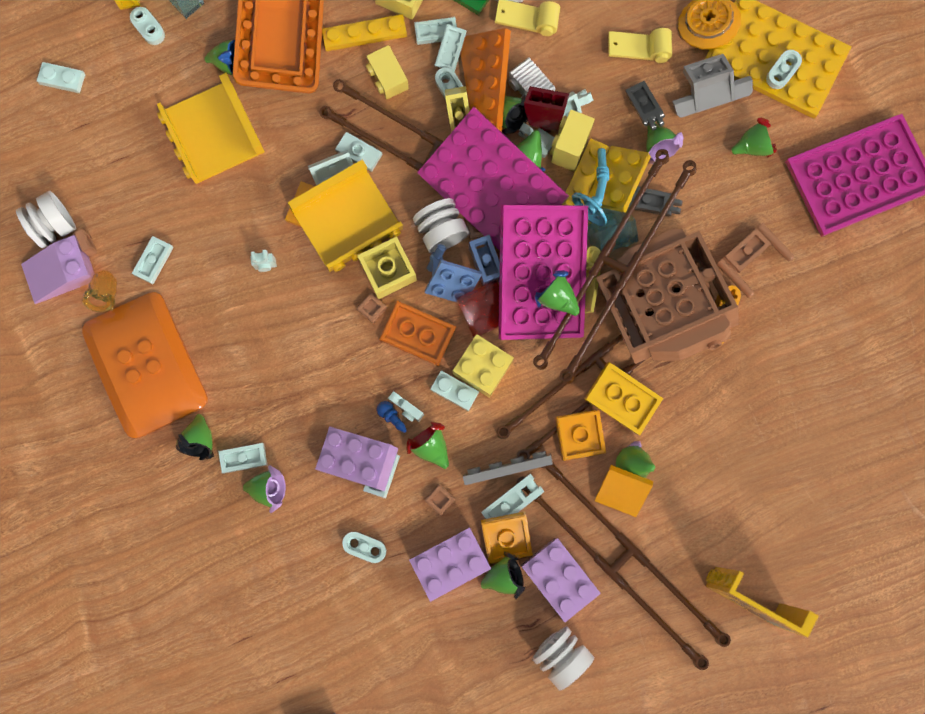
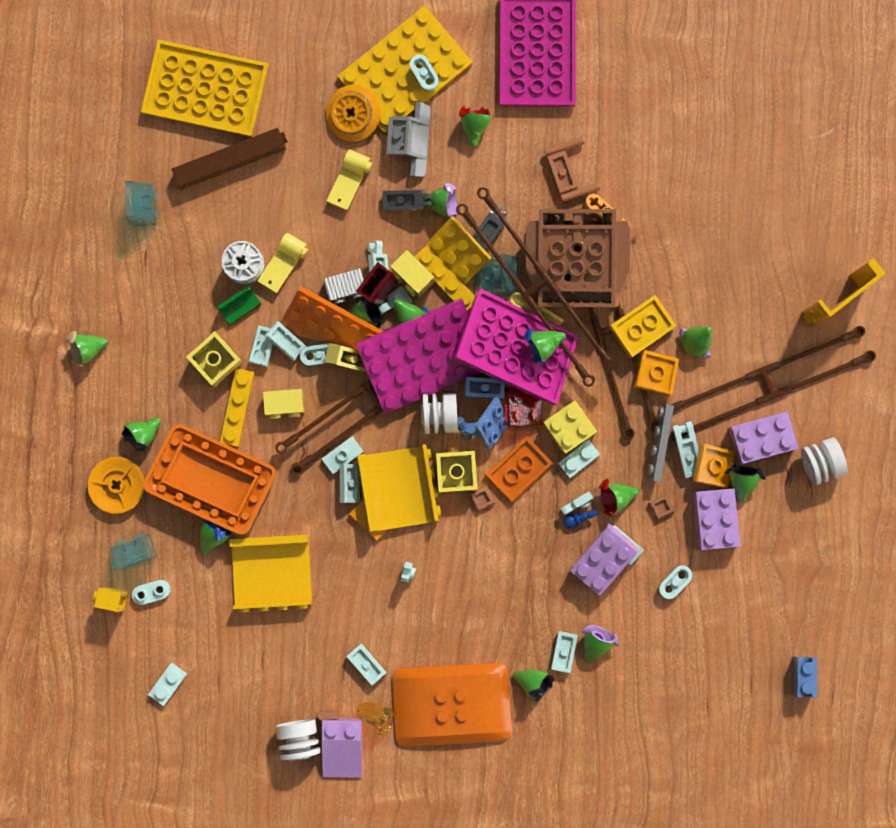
camera: 65 degrees left, 5 degrees up
(594, 204) = (455, 263): medium azure dish -> none
(623, 491) = (715, 358): light orange tile -> none

